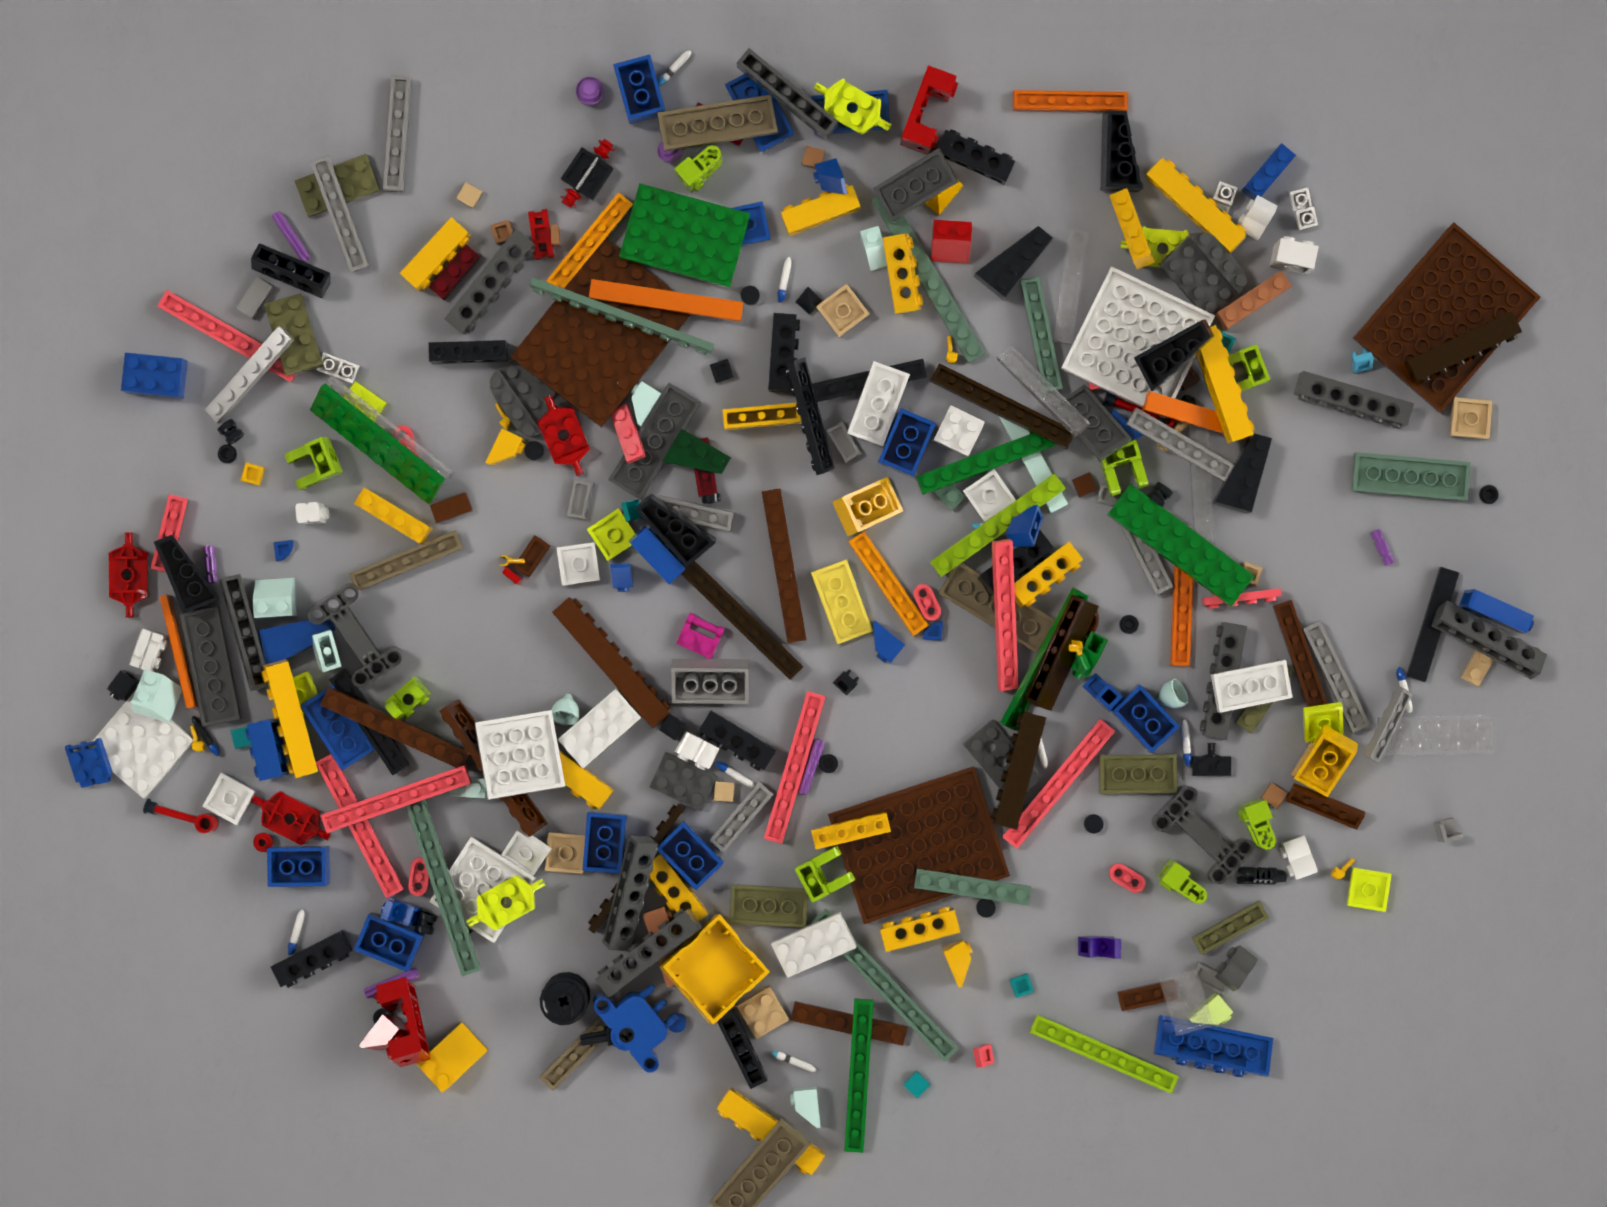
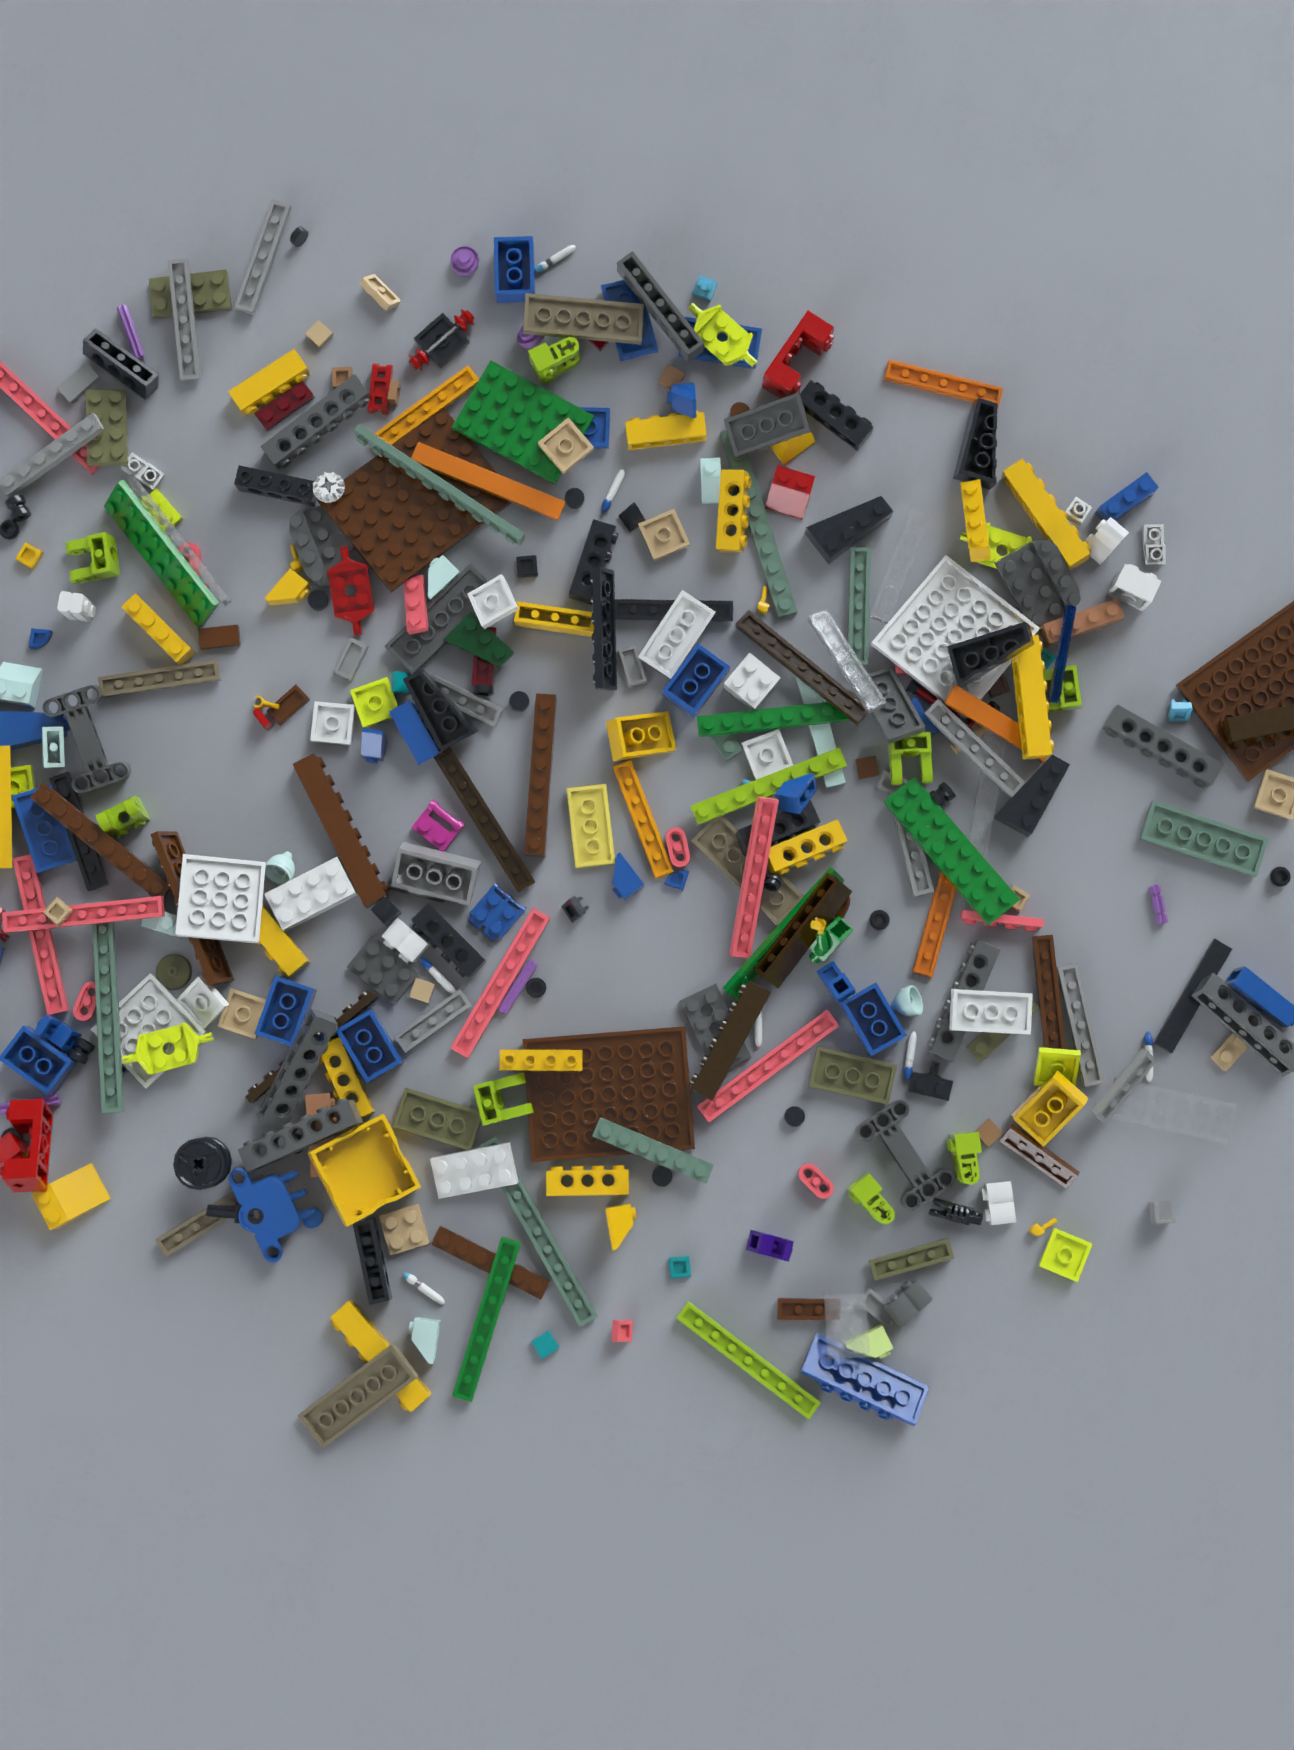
camera: 15 degrees right, 5 degrees down
(372, 802) = (58, 911): none -> tan tile
(426, 105) = (299, 236): none -> black tile
(491, 829) = (174, 971): none -> olive piece
(515, 351) = (336, 490): none -> white gear
(517, 141) = (380, 292): none -> tan plate
(700, 414) = (493, 601): none -> white plate
(731, 250) = (565, 446): none -> tan plate
(746, 501) = (519, 701): none -> black tile
(773, 704) = (495, 913): none -> blue plate
(823, 62) = (704, 288): none -> medium azure tile
(884, 173) = (738, 408): none -> reddish brown tile
(1023, 614) = (772, 882): none -> black plate
(1241, 333) = (1062, 654): none -> clear blue axle

